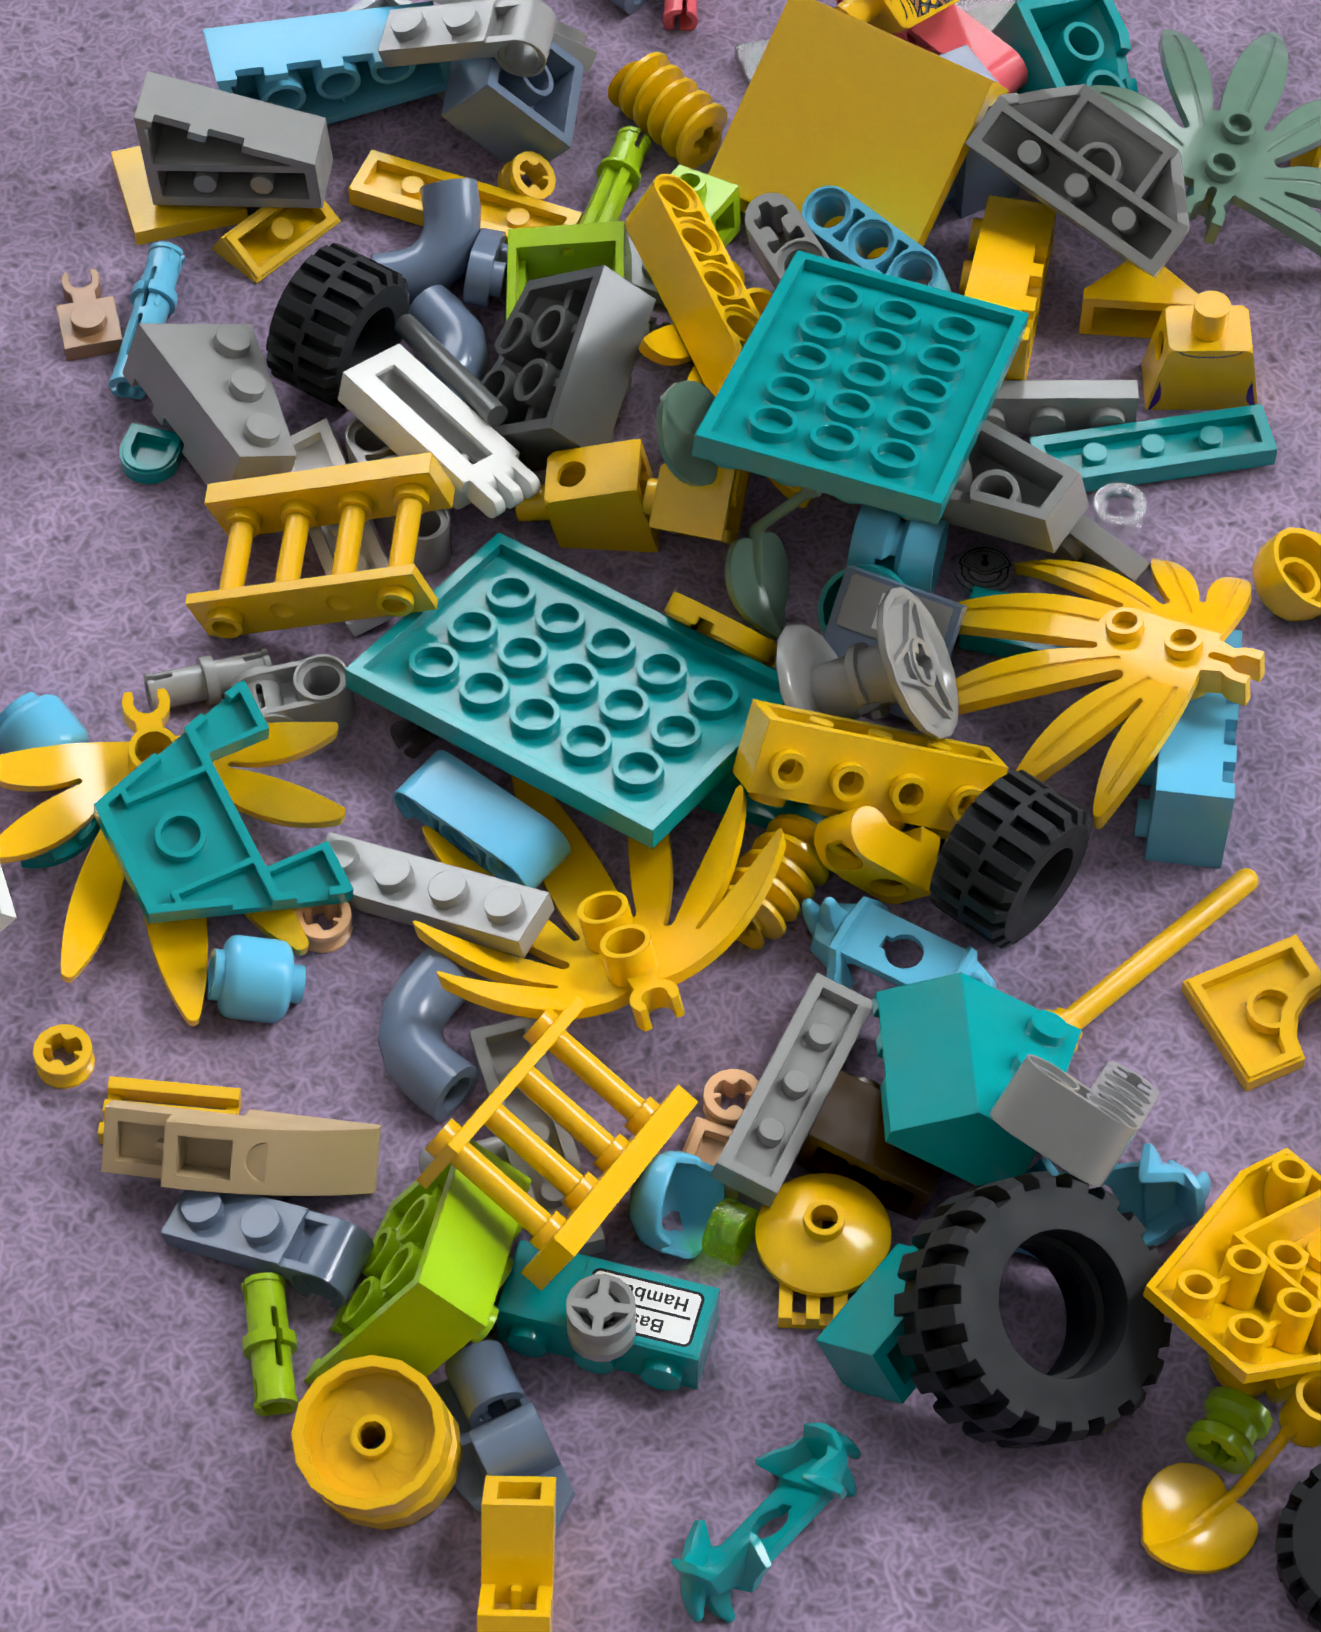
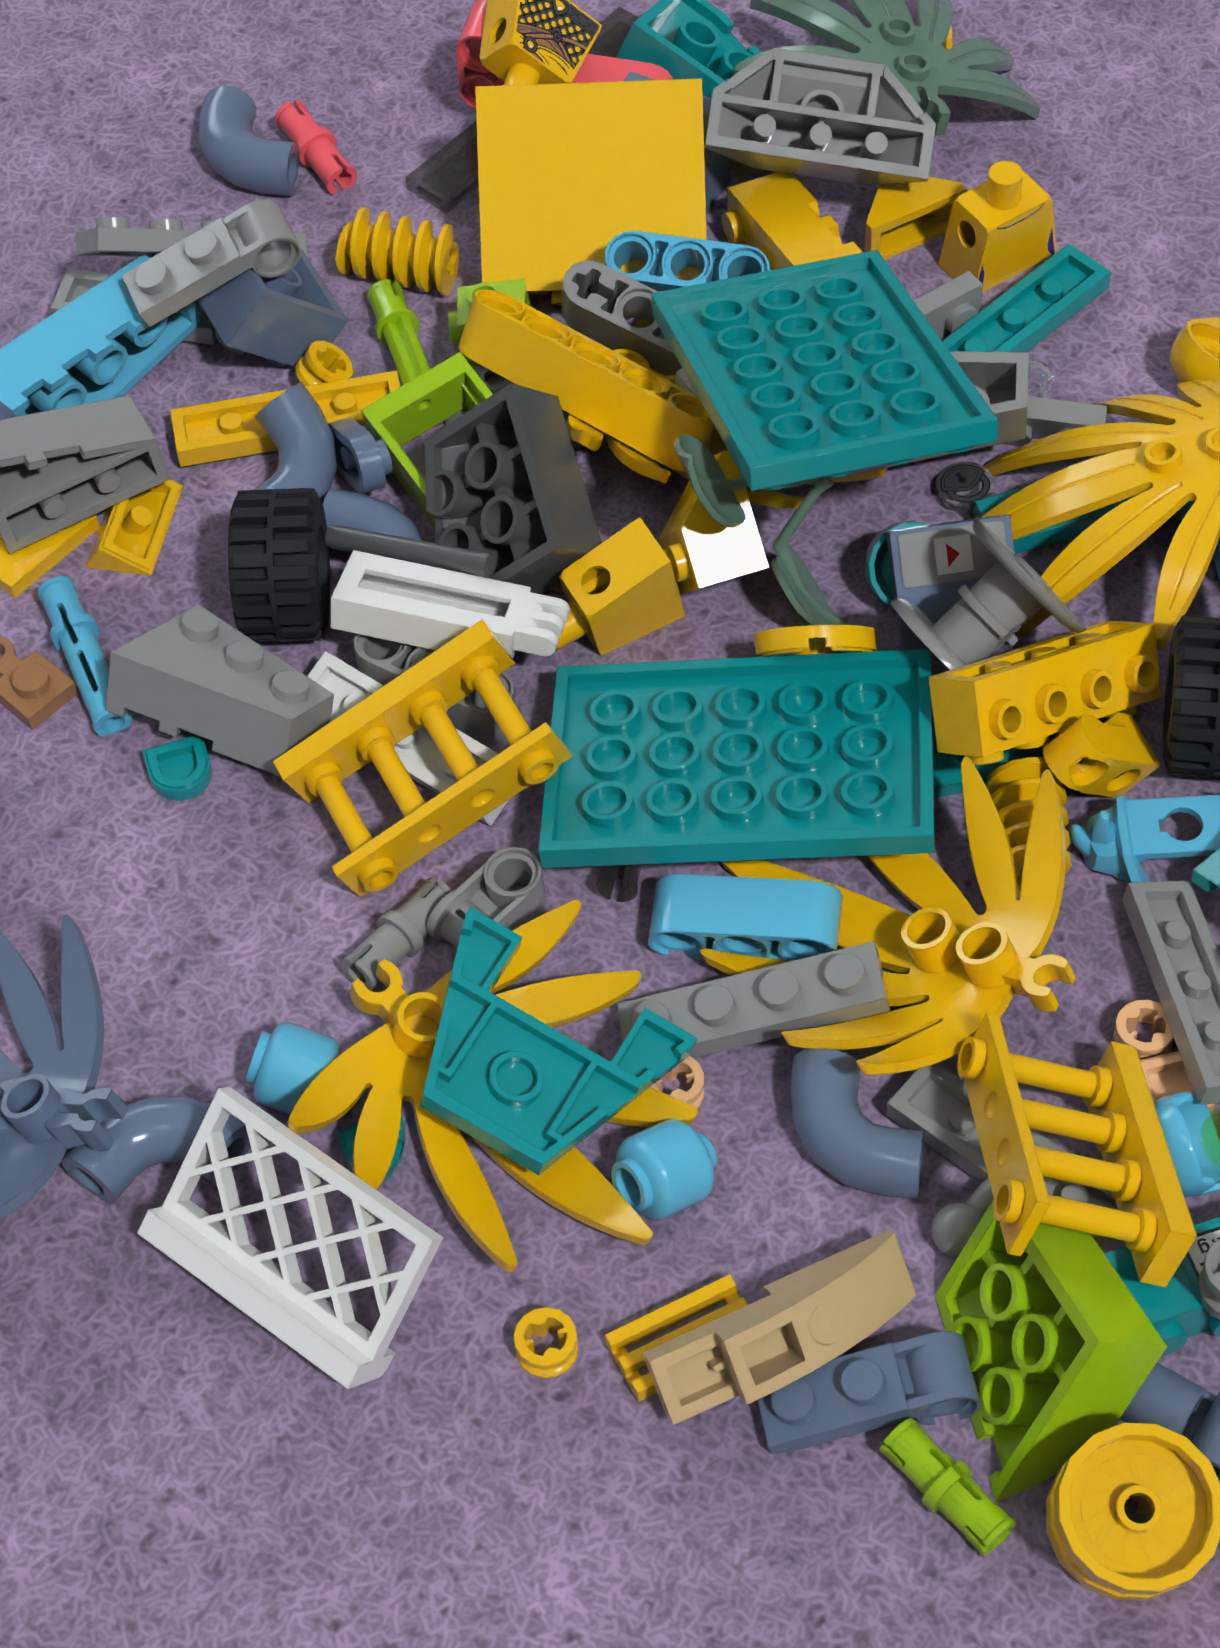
camera: 30 degrees left, 0 degrees up
(905, 547) = (876, 501): medium azure wheel -> none

